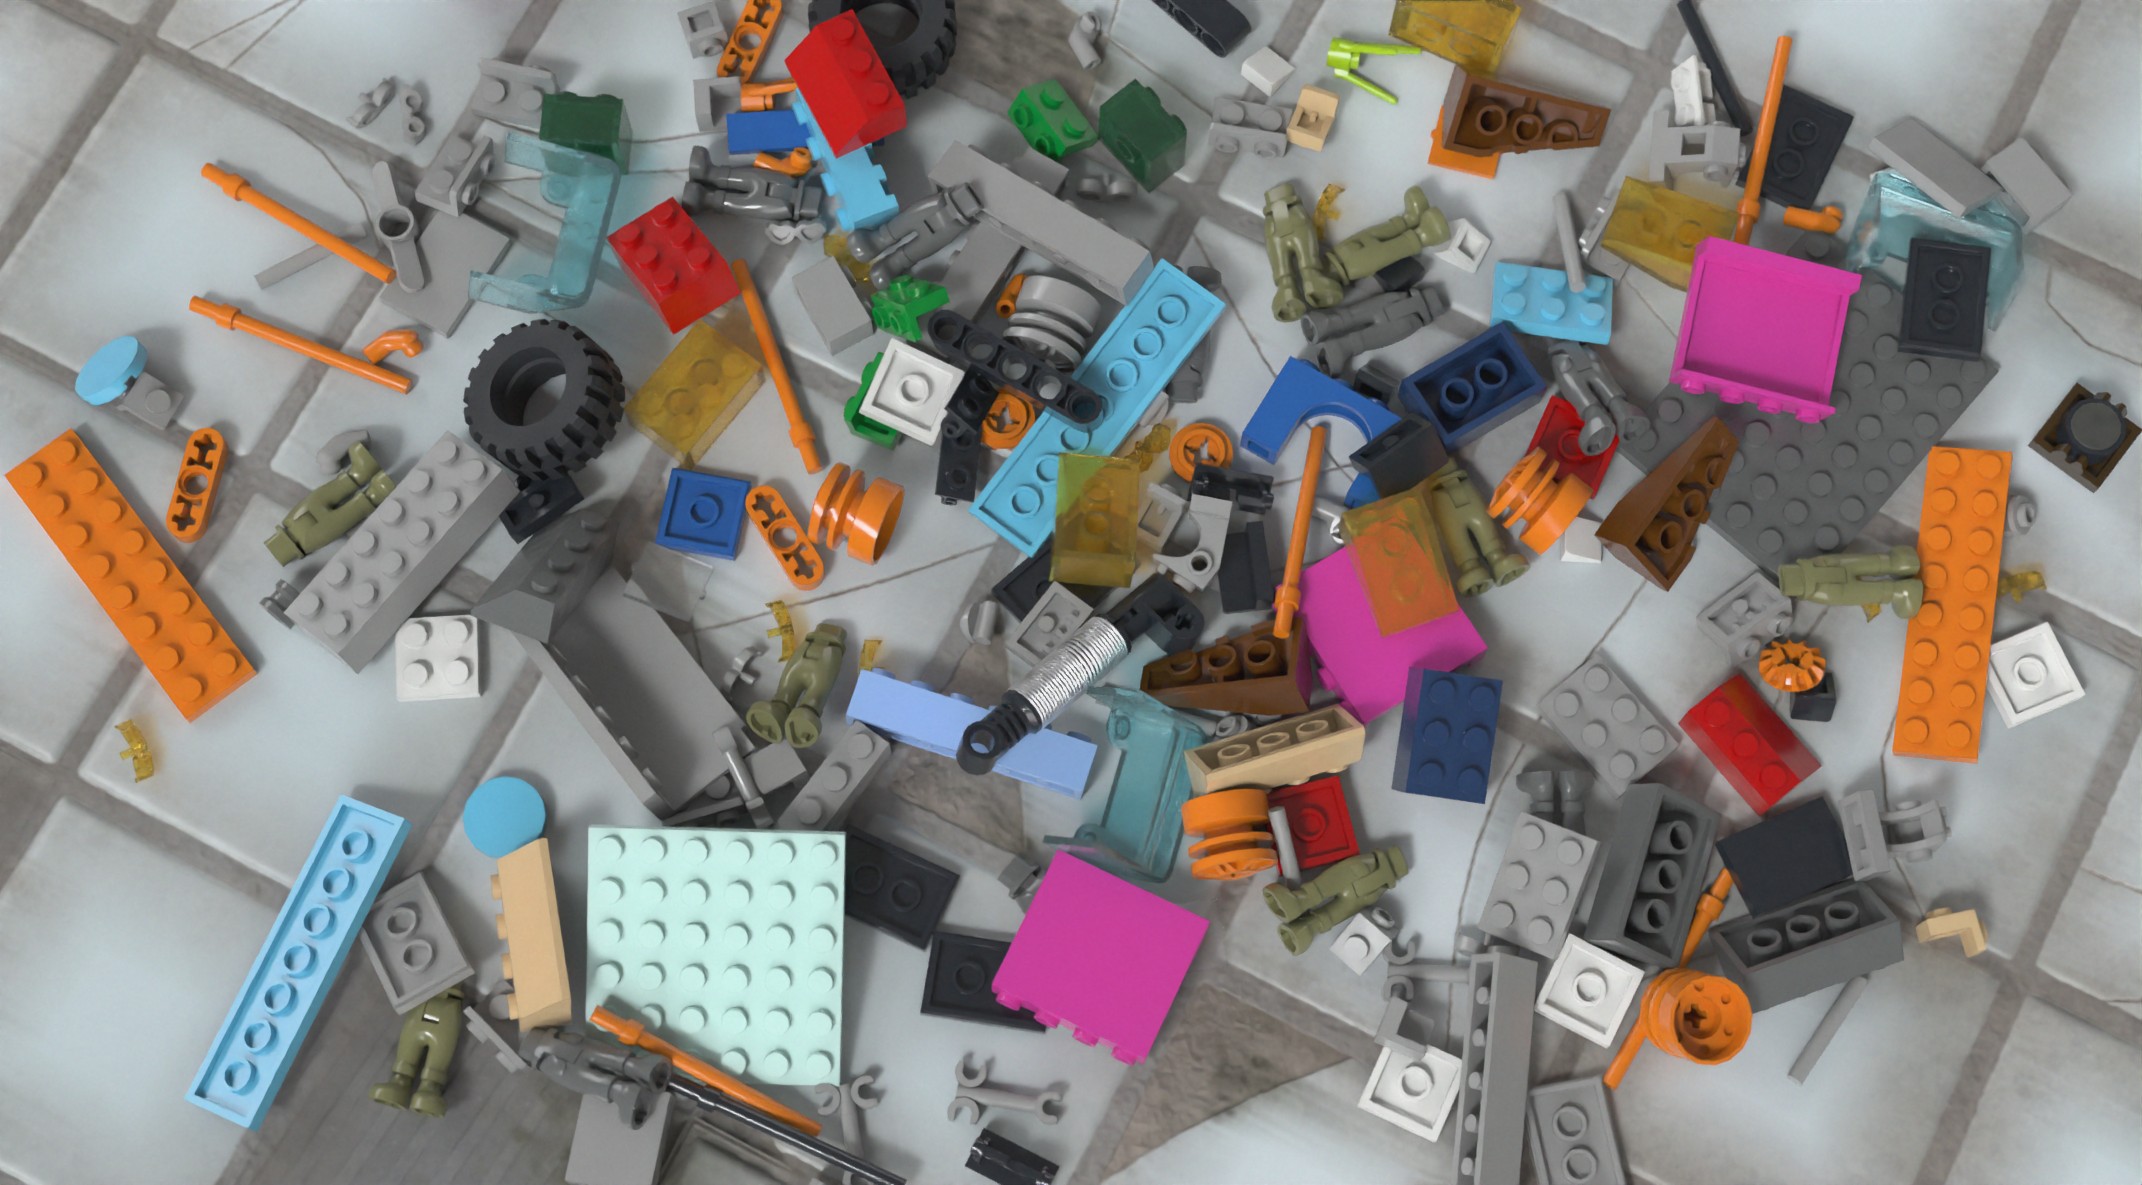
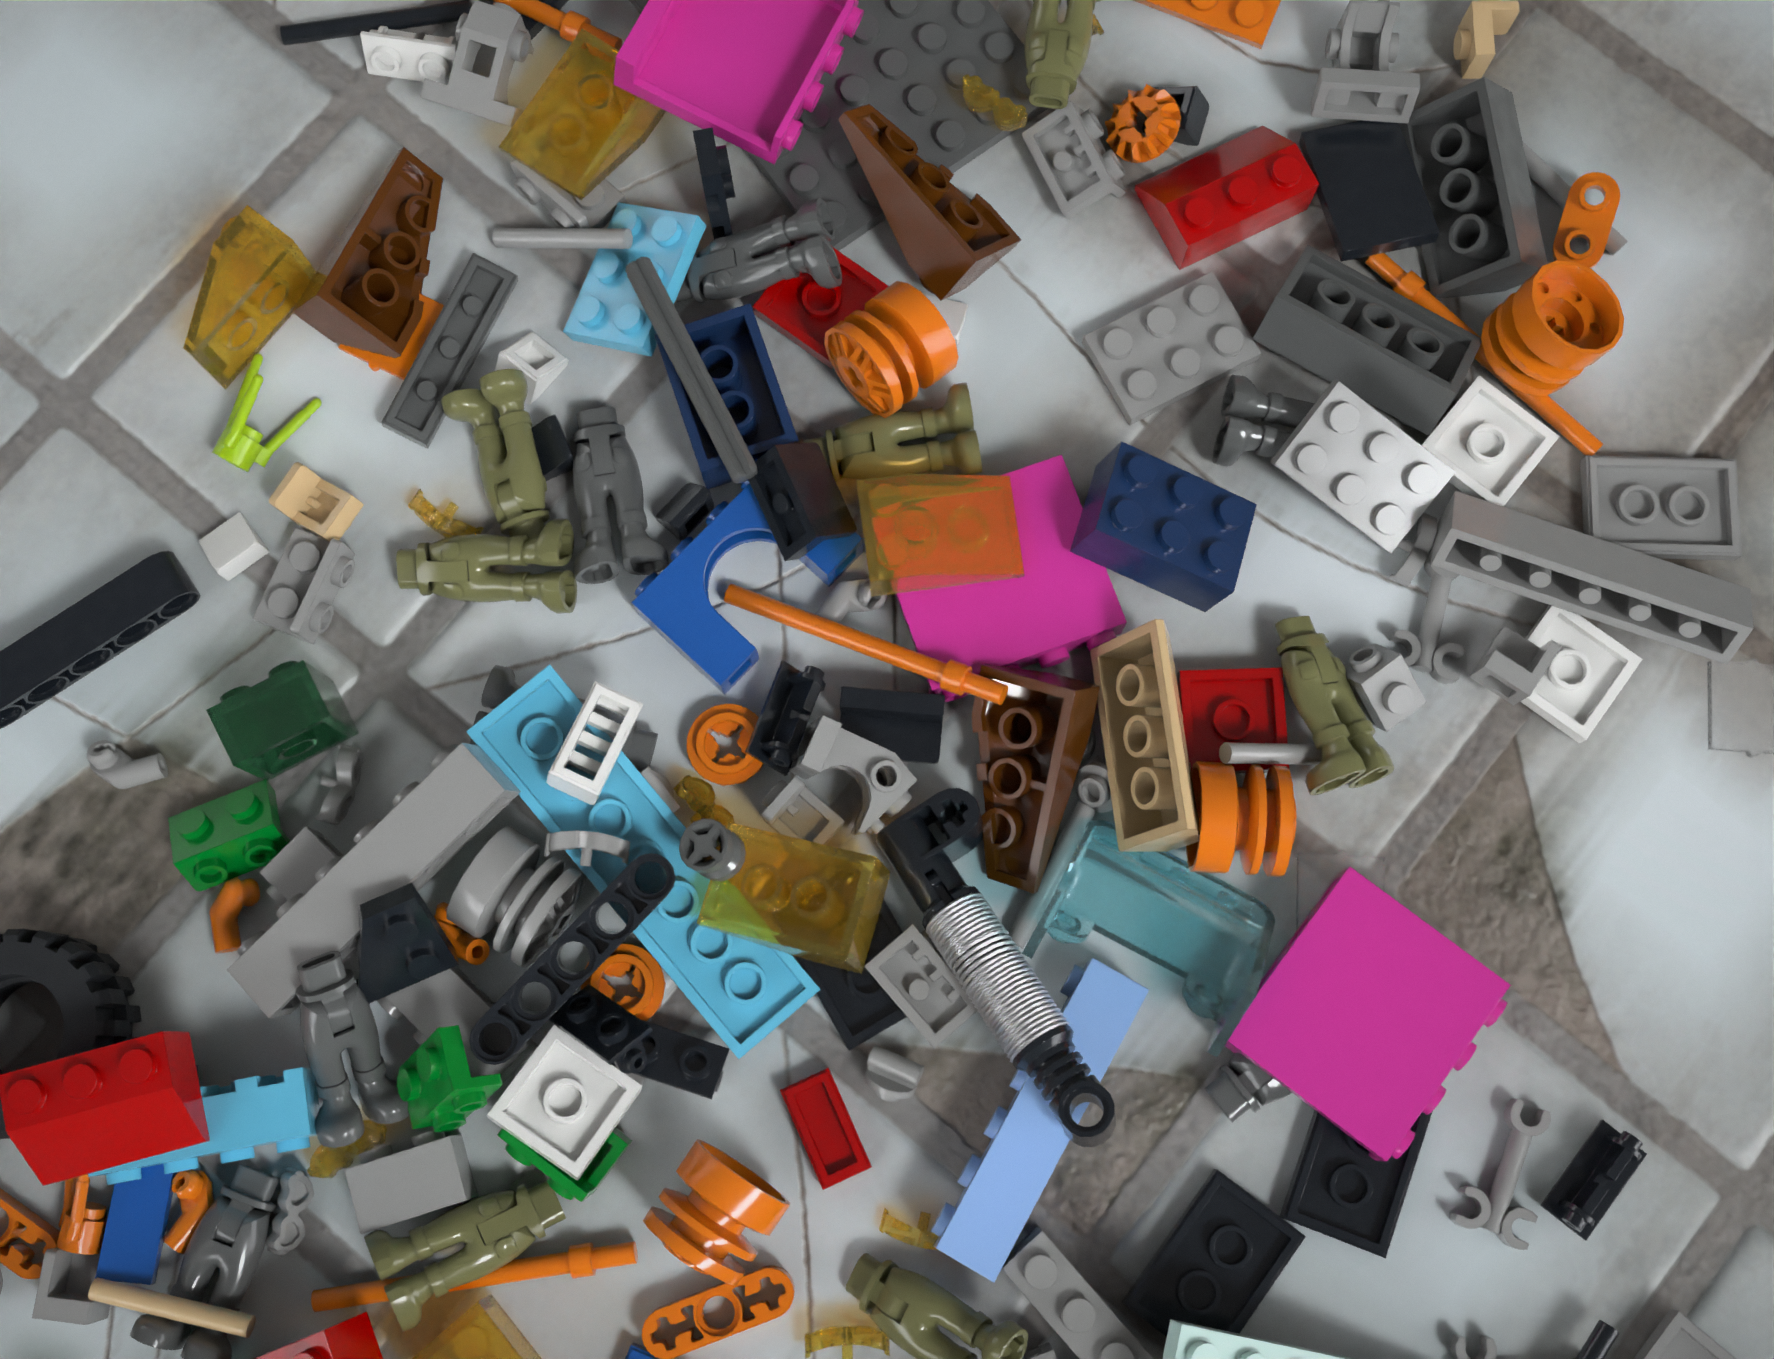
camera: 75 degrees left, 5 degrees up
(717, 168) = (172, 1307): none -> tan bar
(813, 366) = (494, 1233): none -> olive piece
(931, 586) = (826, 1128): none -> red tile
(997, 134) = (226, 909): none -> orange arm
(998, 249) = (399, 943): none -> black wing
(1100, 361) = (587, 842): none -> light grey piece
(1110, 439) = (699, 846): none -> dark grey wheel
(1162, 330) = (576, 784): none -> white slope
(1460, 184) = (450, 350): none -> dark grey tile
(1479, 353) = (691, 370): none -> dark grey axle
(1641, 342) = (716, 180): none -> black wing
(1774, 533) = (984, 98): none -> clear yellow piece
(1804, 1042) = (1587, 220): none -> orange plate

